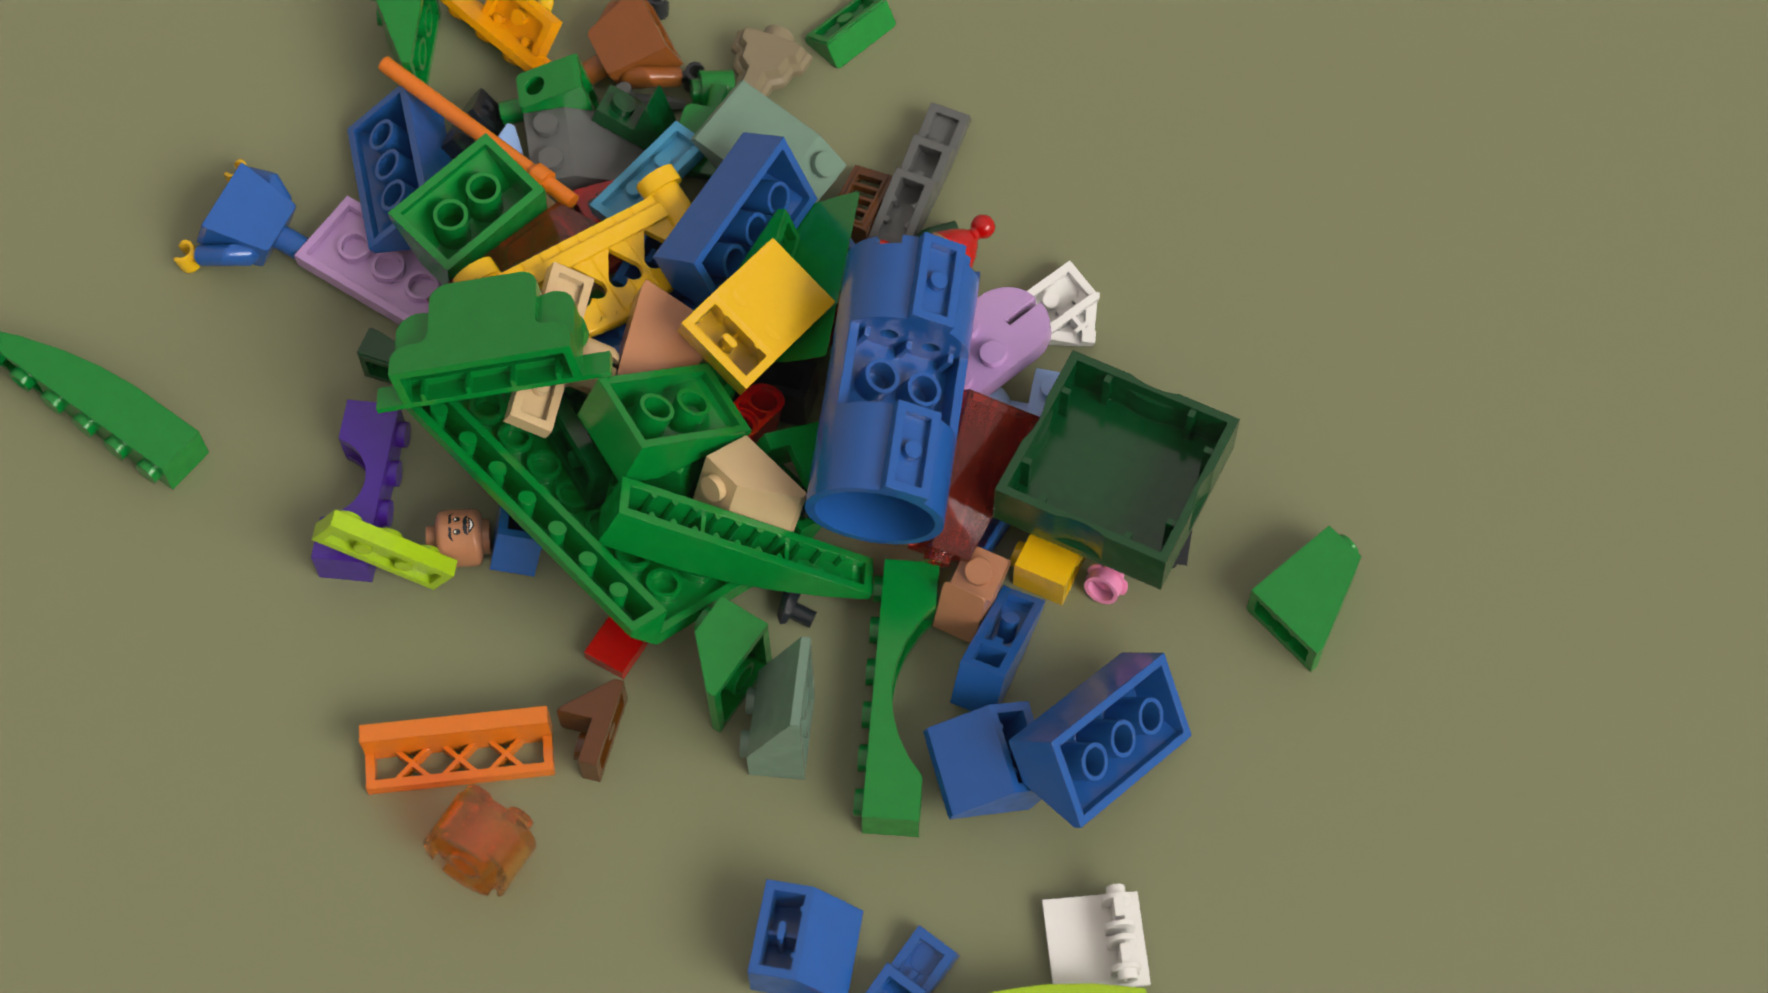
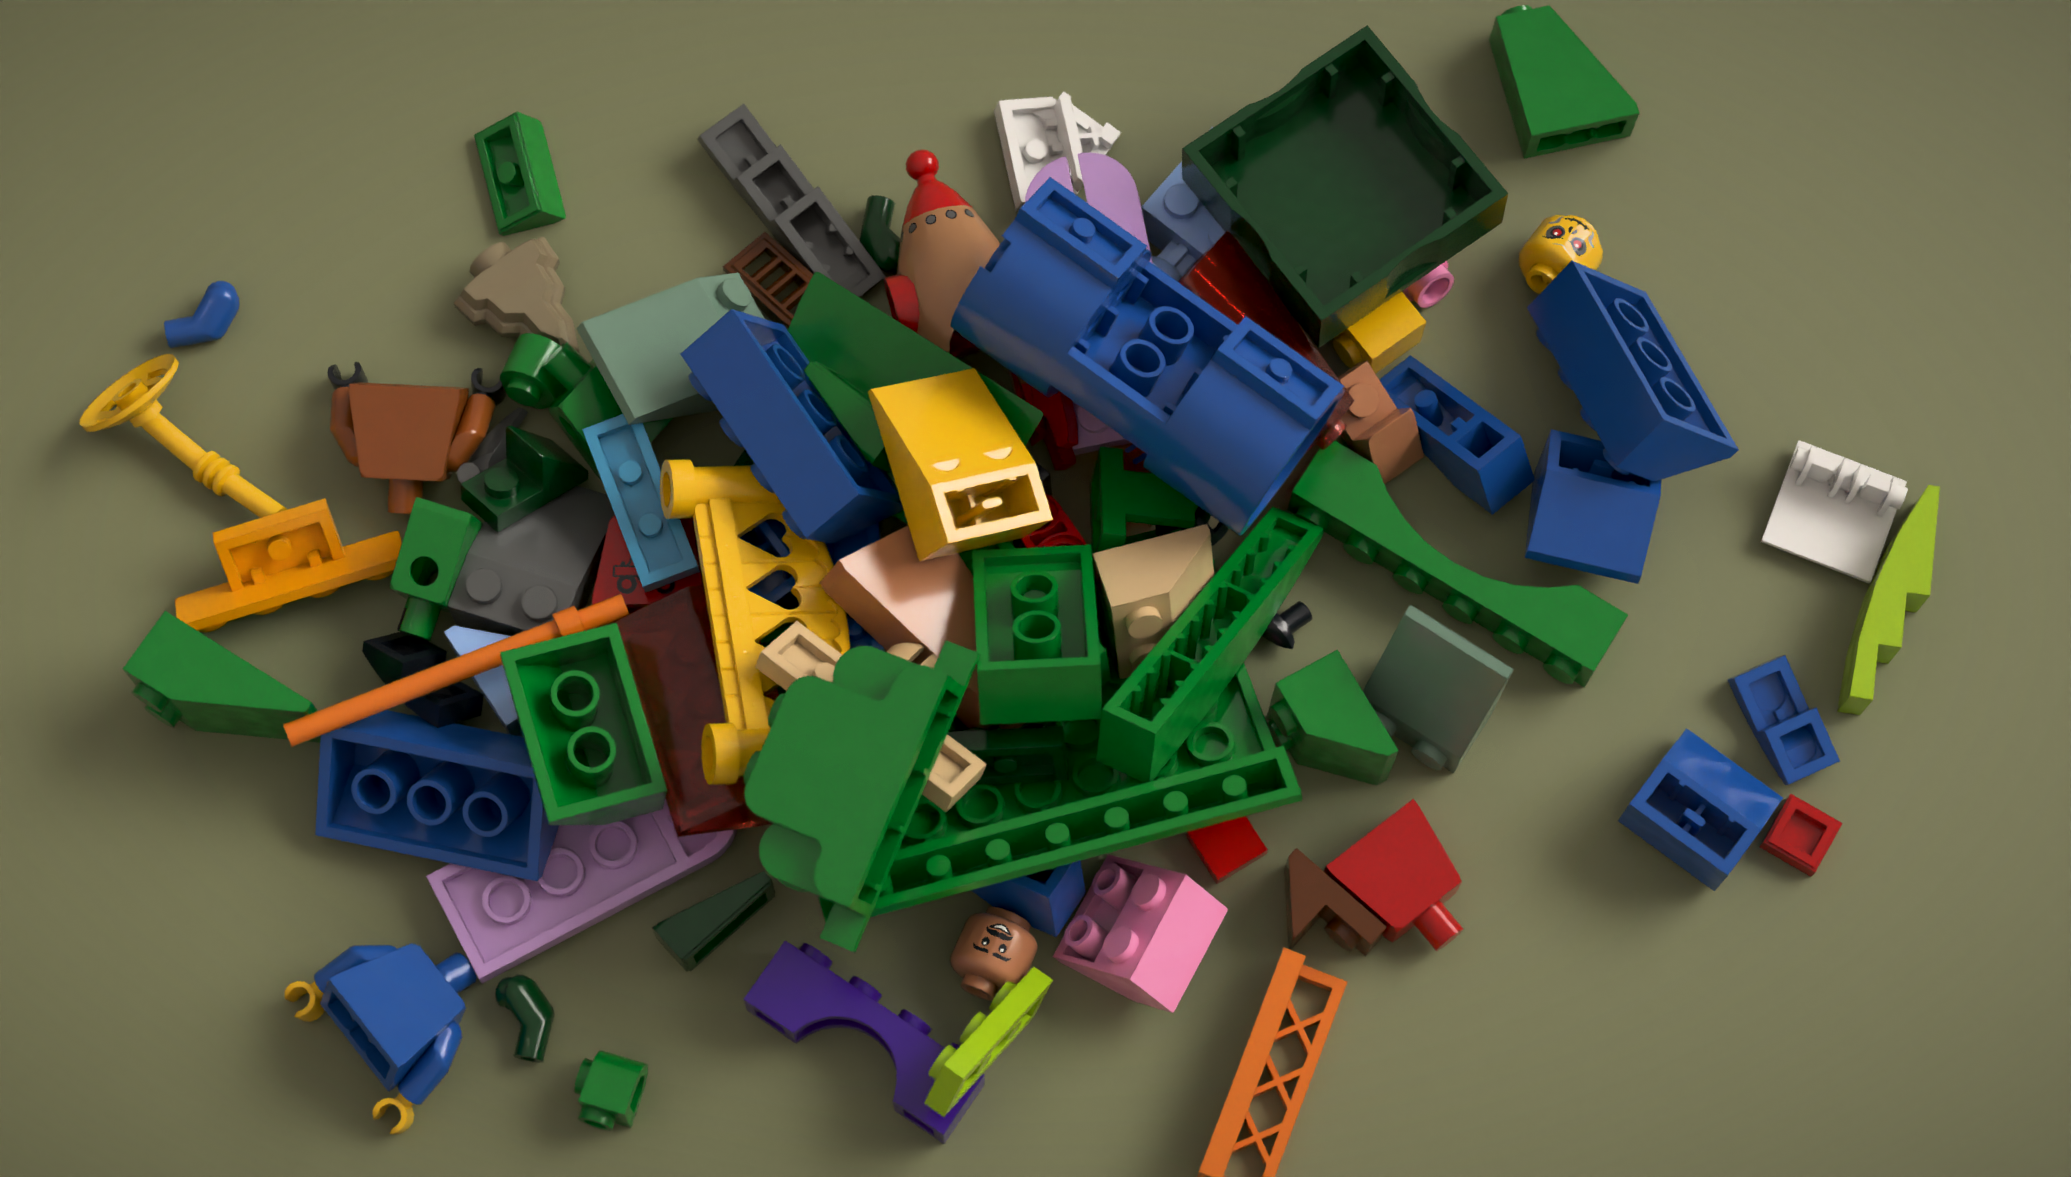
camera: 65 degrees left, 10 degrees up
(257, 362) = (610, 1090): none -> green plate
(290, 298) = (532, 1010): none -> dark green arm
(481, 841) = (1414, 1095): clear orange brick -> none
(518, 620) = (1141, 931): none -> bright pink slope
(644, 765) = (1402, 877): none -> red torso
(1185, 654) = (1554, 246): none -> yellow head

